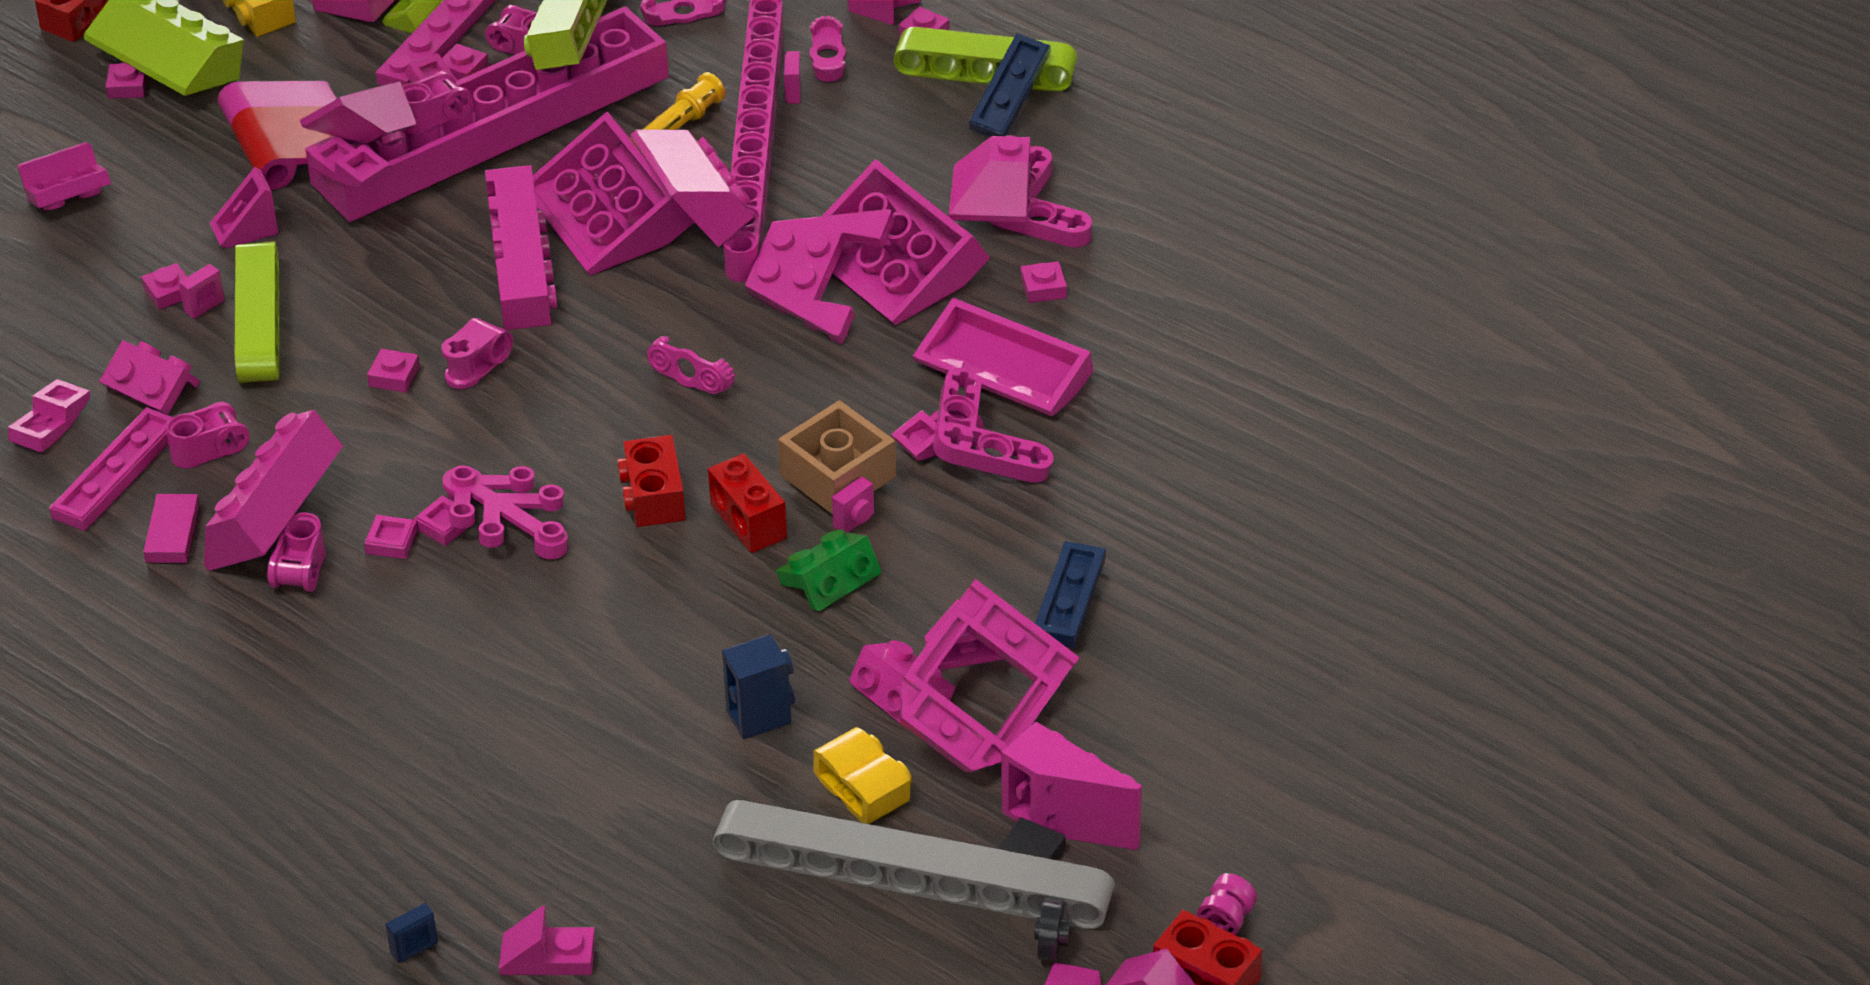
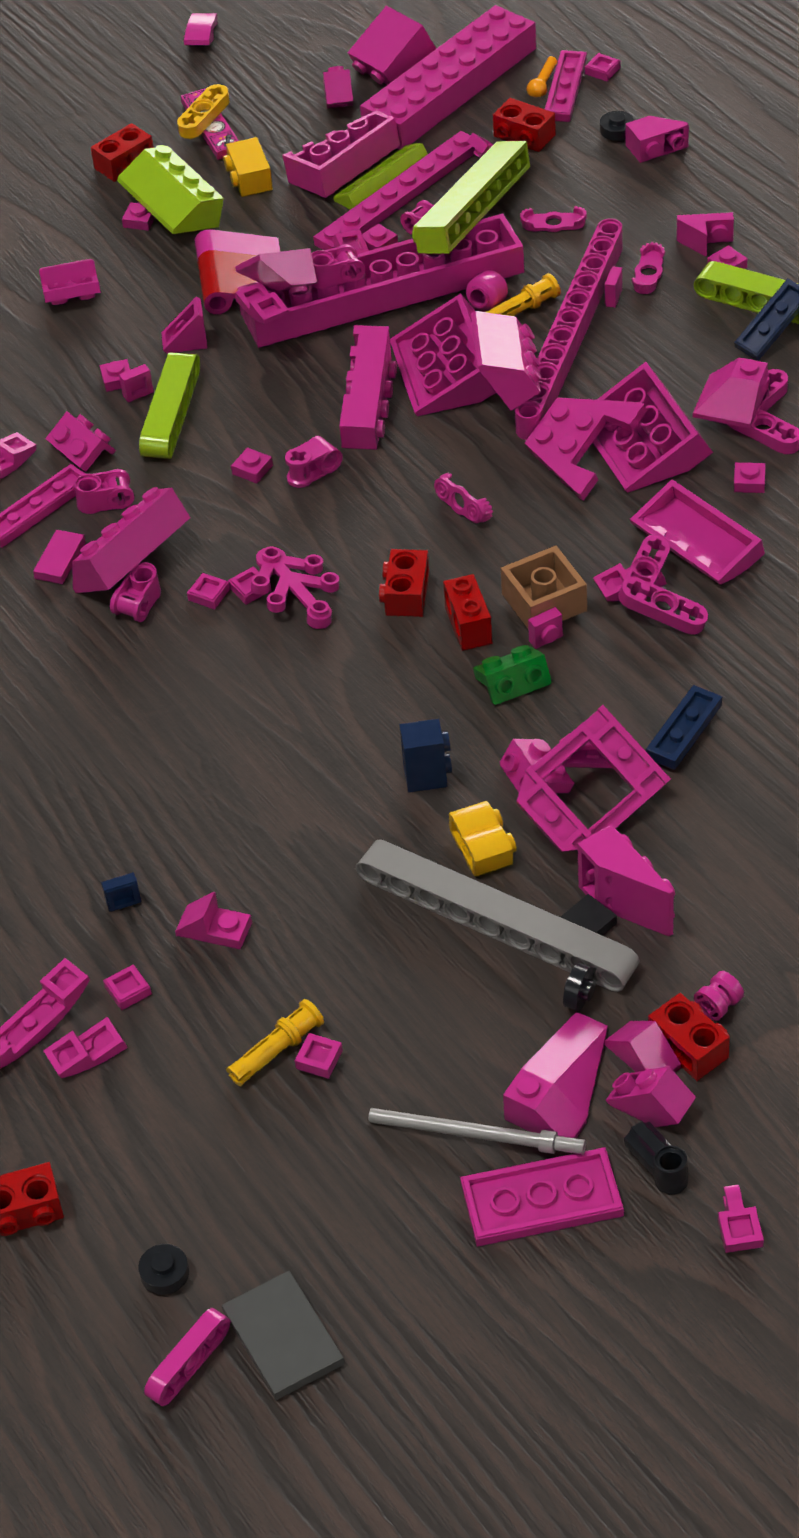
camera: 20 degrees right, 5 degrees up
(632, 104) = (486, 290): none -> dark pink head

